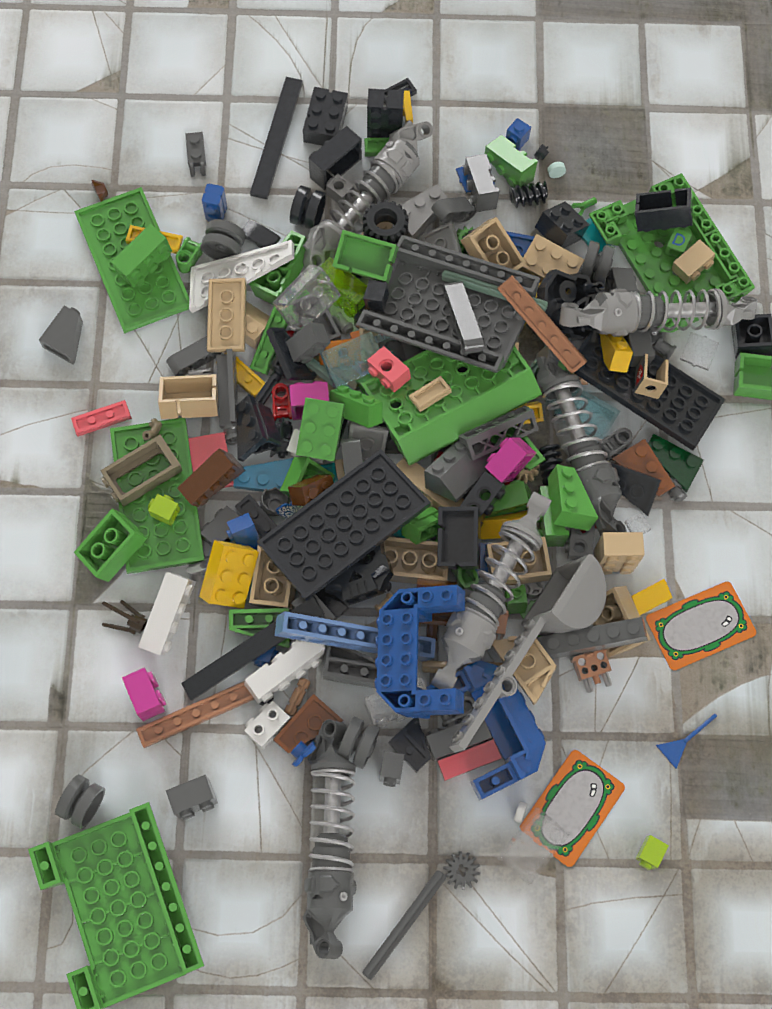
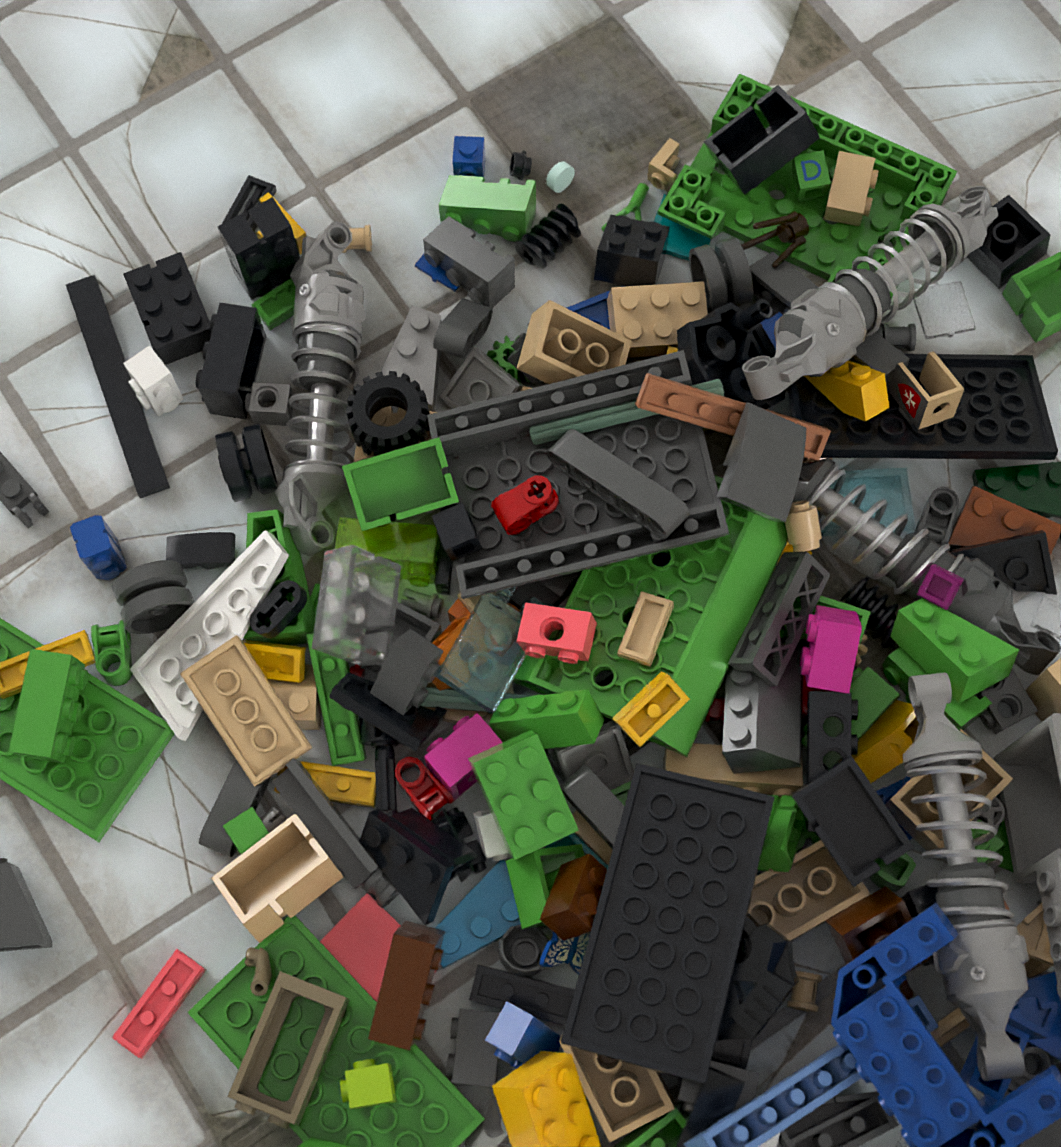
camera: 30 degrees left, 0 degrees up
(189, 366) = (245, 830): none -> bright green tile
(257, 304) = (278, 660): none -> yellow tile
(272, 279) = (278, 609): none -> black beam
(291, 145) = (153, 382): none -> white brick
(405, 430) = (651, 708): none -> yellow slope
(414, 301) = (521, 505): none -> red piece
(437, 139) = (360, 239): none -> tan bush
(539, 353) = (763, 464): none -> dark grey slope
(539, 397) = (803, 526): none -> tan brick
(584, 466) = (940, 586): none -> magenta tile
(612, 194) = (662, 166): none -> tan bracket
(648, 263) = (791, 229): none -> dark brown plant

